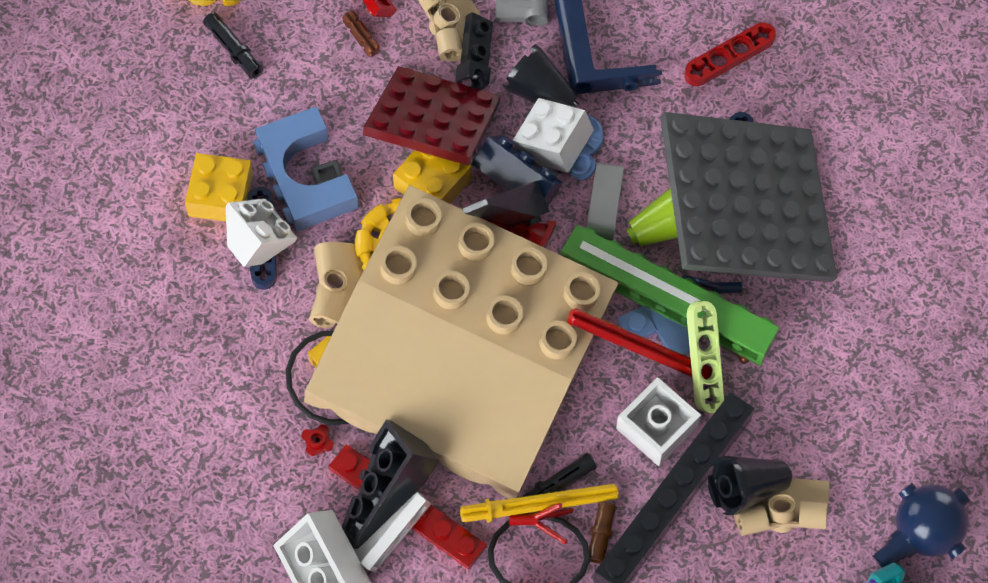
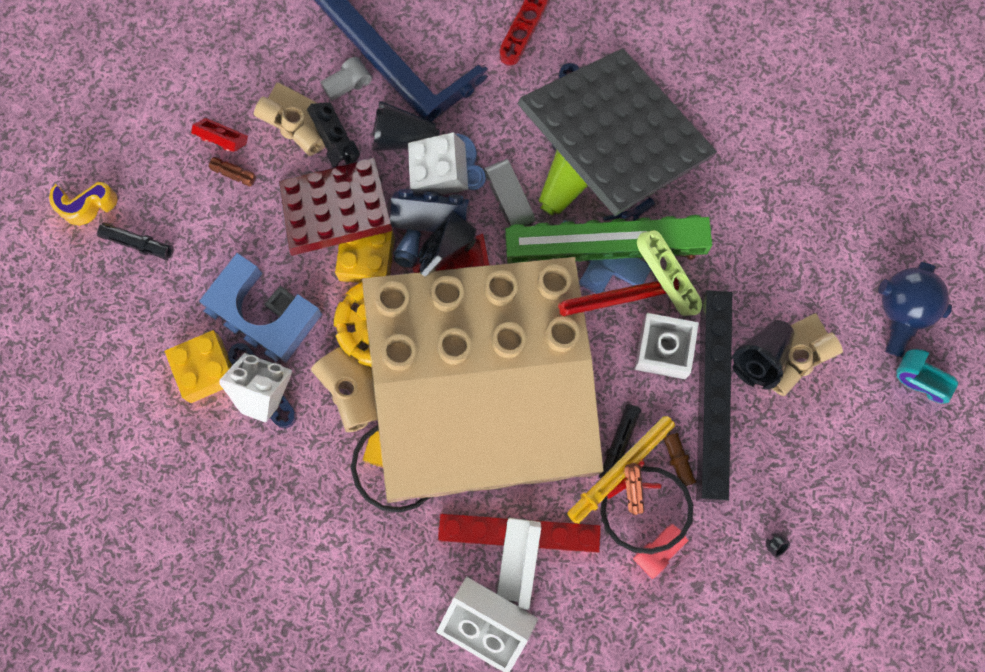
camera: 30 degrees left, 10 degrees up
(317, 448) = (415, 532): red plate -> none
(394, 474) = (498, 521): black wedge -> none
(476, 192) = (407, 251): none -> medium blue cone
(537, 525) = (634, 489): none -> axle

